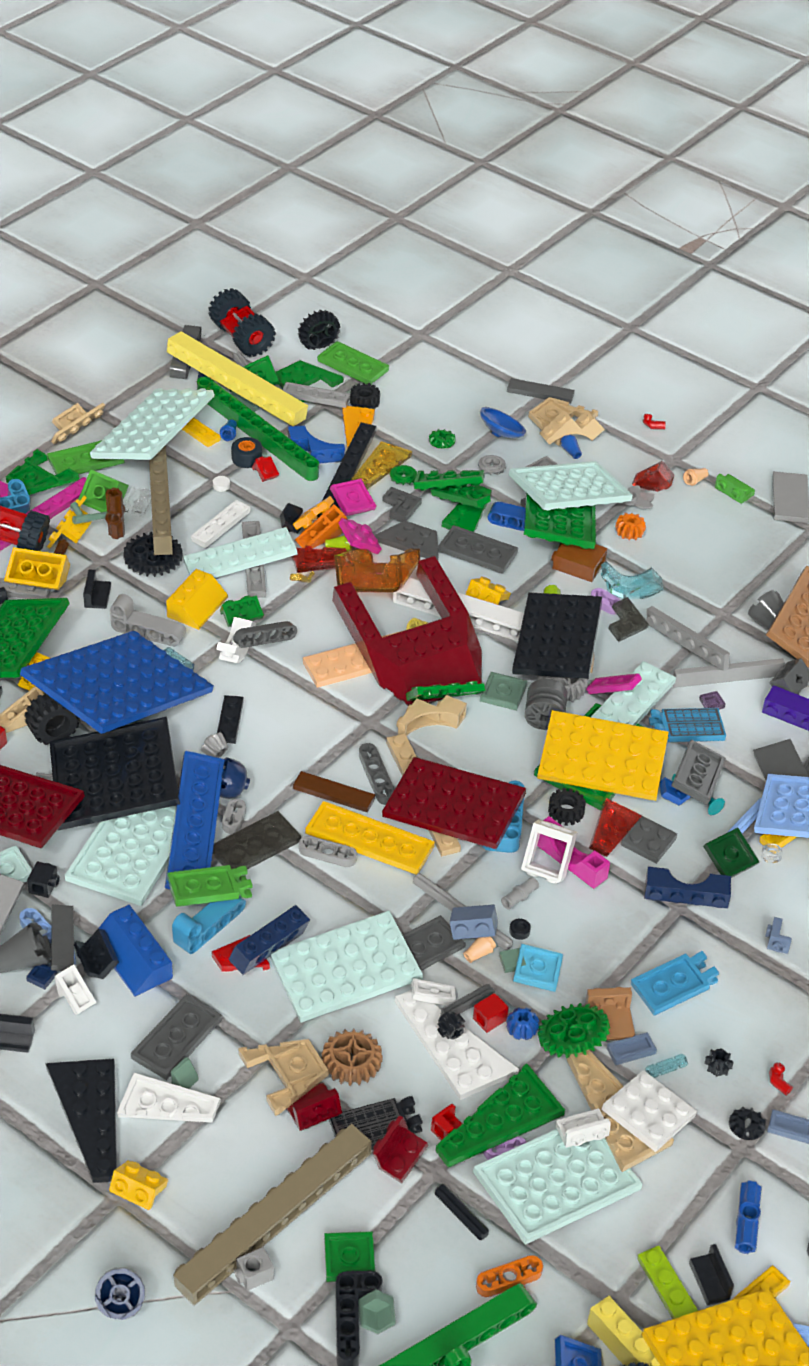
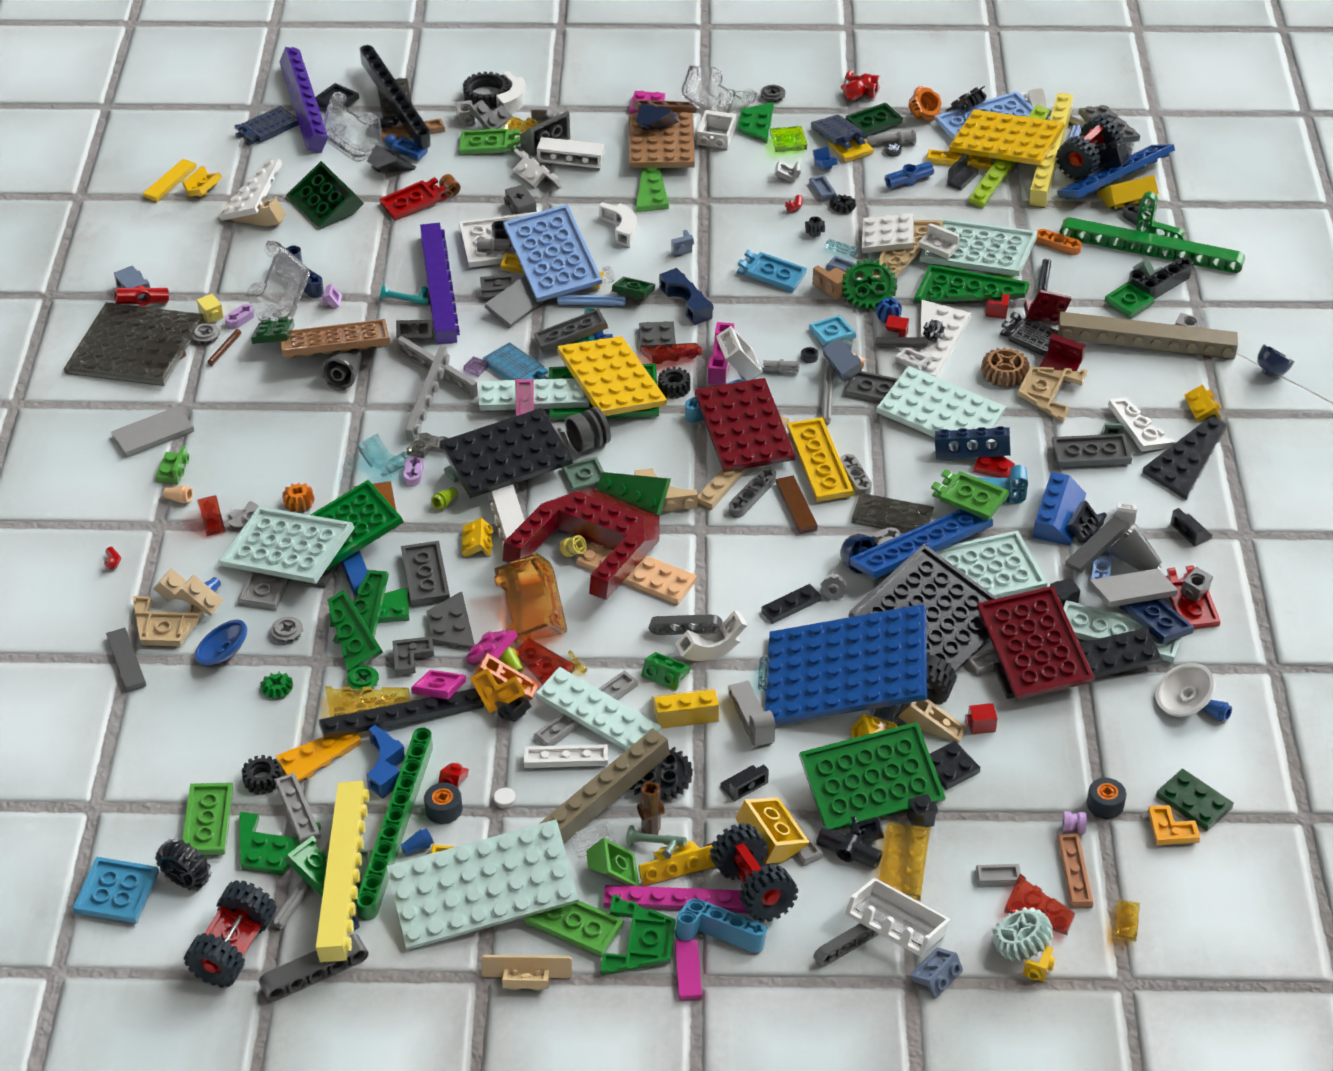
camera: 125 degrees left, 0 degrees up
(342, 306) = (116, 890): none -> dark azure plate

